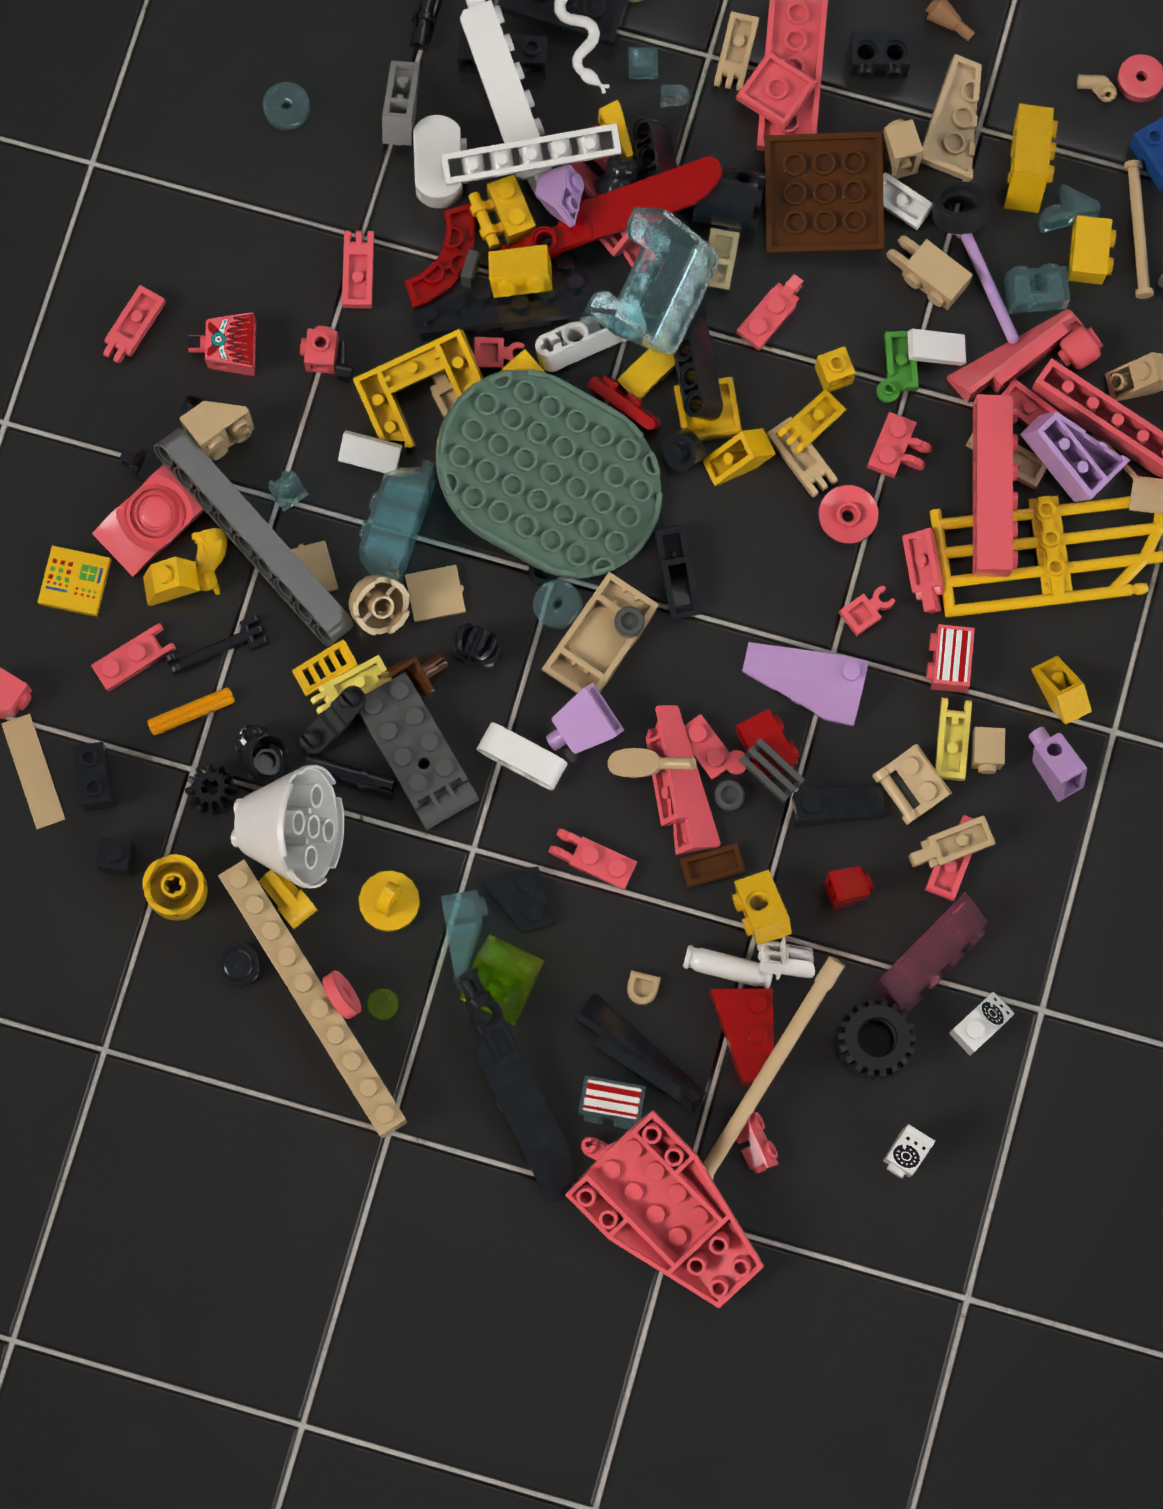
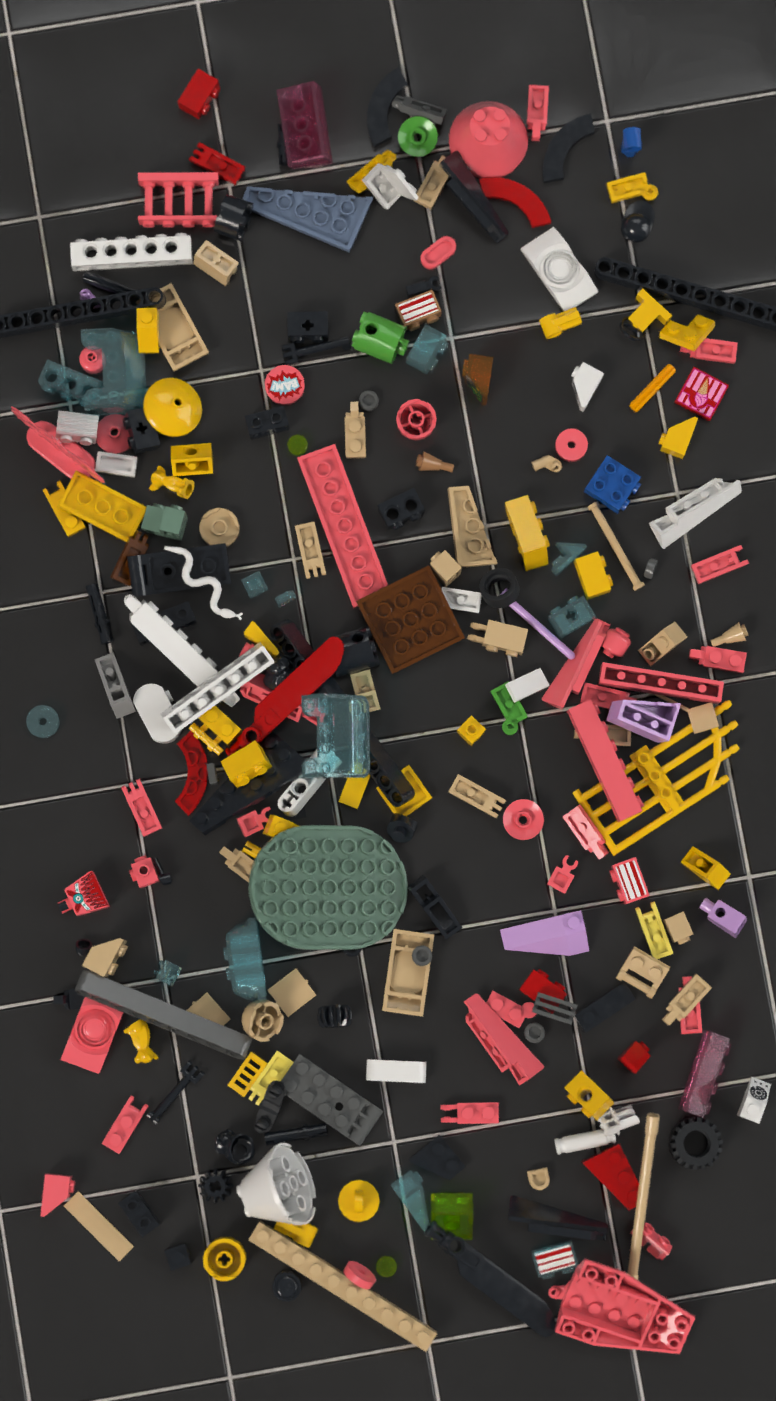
camera: 25 degrees left, 5 degrees up
(74, 581) = (64, 1094): yellow tile -> none
(133, 323) = (18, 911): coral hinge -> none
(170, 580) = (126, 1067): yellow slope -> none
(191, 711) = (178, 1141): light orange axle -> none
(369, 452) = (208, 923): white tile -> none
(380, 384) = (194, 876): yellow wedge -> none
(418, 672) = (307, 1050): reddish brown bracket -> none
(550, 593) = (380, 963): clear light blue piece -> none
(561, 193) = (248, 702): lavender slope -> none
(584, 722) = (425, 1032): lavender torso -> none
(627, 403) = (352, 814): red hinge -> none
(645, 762) = (474, 1040): tan piece -> none
(712, 865) = (545, 1081): reddish brown tile -> none
(739, 456) = (438, 815): yellow slope -> none
(770, 313) = (413, 711): coral hinge -> none
(776, 90) = (348, 565): coral tile -> none
(812, 420) = (473, 771): yellow hinge -> none
(892, 445) = (529, 760): coral hinge -> none
(908, 1152) = (747, 1203): white slope -> none

